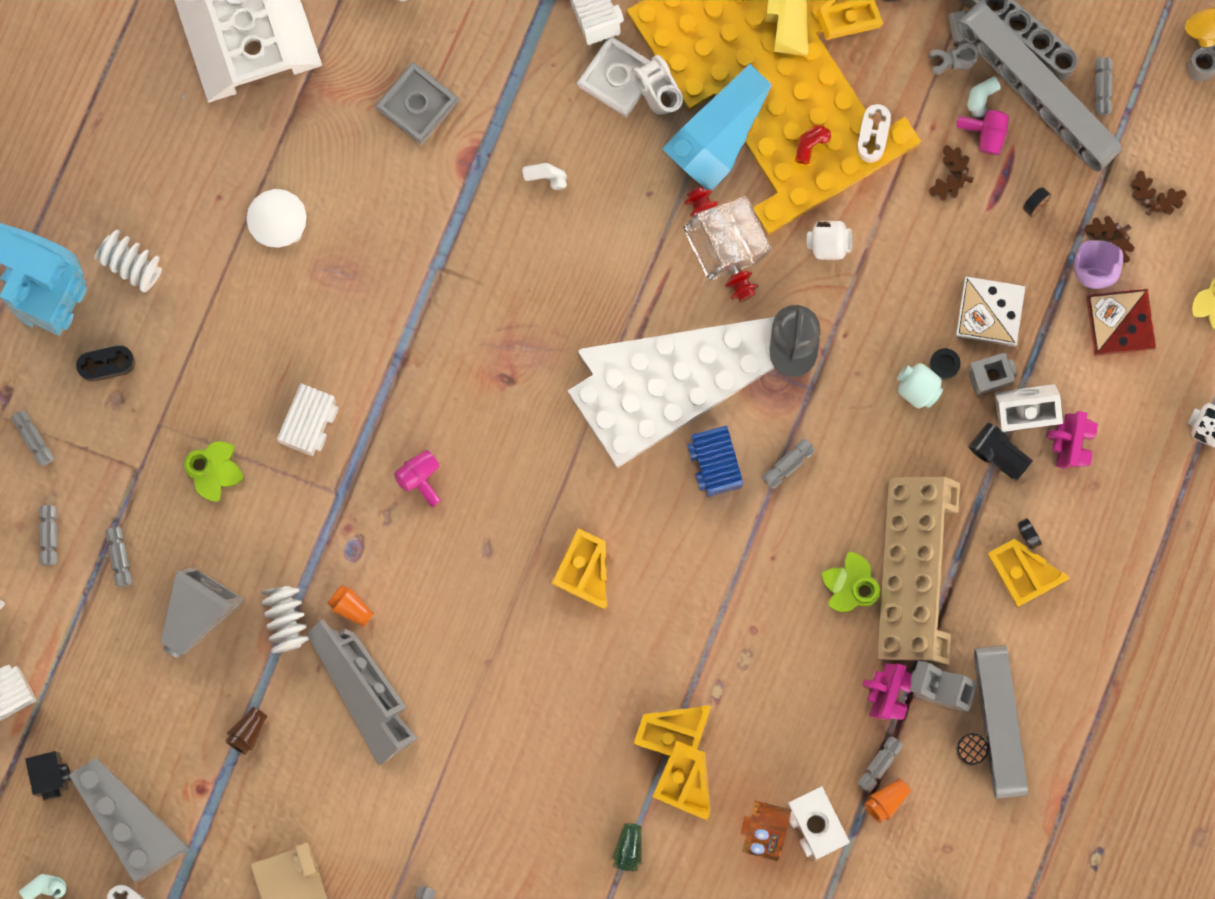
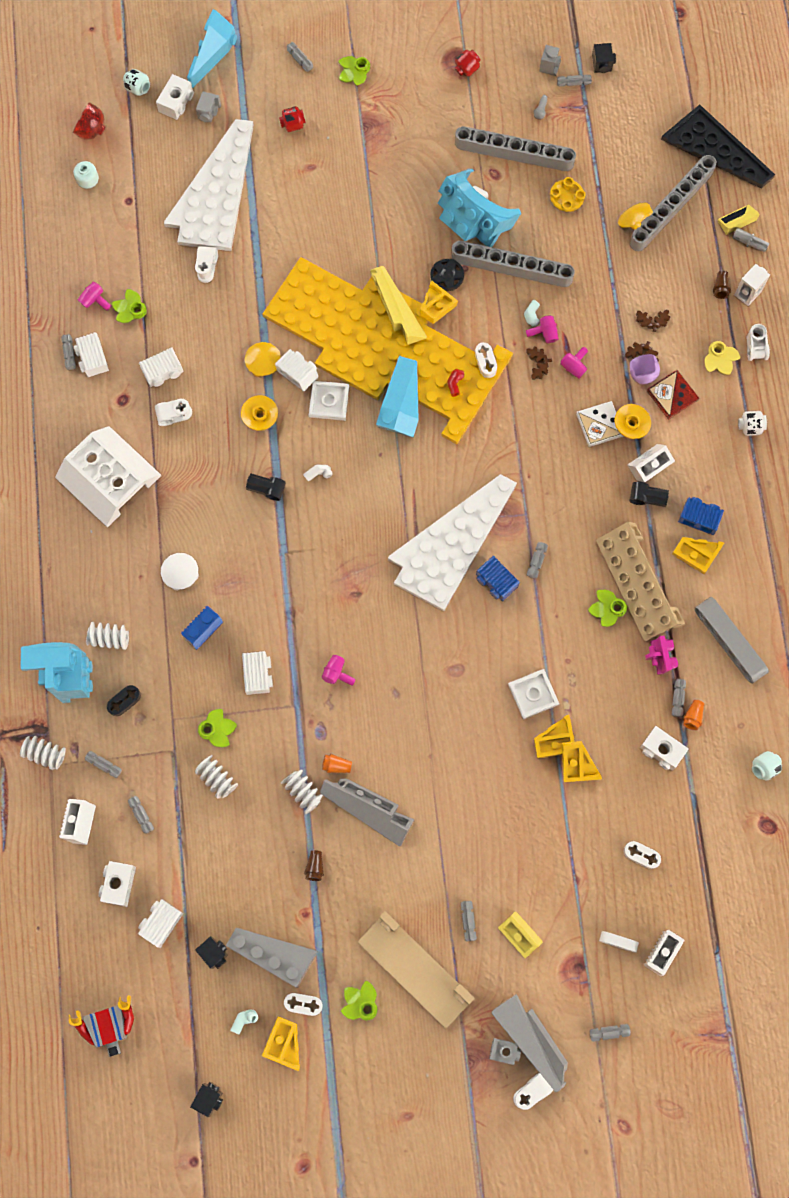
camera: 25 degrees left, 5 degrees down
(118, 557) = (188, 806): light grey axle -> none
(174, 538) = (215, 778): none -> white piece
(195, 610) = (249, 813): light grey slope -> none
(264, 316) = (202, 627): none -> blue brick
(417, 103) = (225, 469): light grey tile -> none
(466, 164) = (270, 488): none -> black piece
(507, 31) = (257, 405): none -> yellow dish
(584, 569) = (456, 676): yellow wing -> none
(628, 848) = (567, 819): clear green cone -> none
(656, 84) = (354, 392): white piece -> none
(678, 651) = (533, 694): none -> white tile
(726, 240) = (437, 456): clear brick -> none
(765, 830) = (638, 767): clear orange head -> none
(794, 340) = (504, 491): dark grey piece -> none
(830, 240) = (493, 428): white head -> none
(919, 385) = (585, 481): light aqua head -> none
(942, 687) = (690, 637): light grey brick -> none
(945, 363) = (591, 464): black tile -> none
(961, 57) = (510, 297): light grey bar -> none
(972, 749) = (723, 663): tile -> none
(999, 202) = (573, 364): none -> dark pink piece
(1001, 365) = (617, 462): light grey brick -> none
(1029, 533) = (688, 530): black tile -> none
(1036, 201) = (592, 353): black tile -> none
(1038, 86) = (560, 292): light grey beam -> none
(1048, 323) = (636, 415): none -> yellow dish
(1059, 521) = (701, 515): none -> blue brick
(1069, 439) = (682, 469): dark pink hips -> none
(1103, 86) = (593, 277): light grey axle -> none

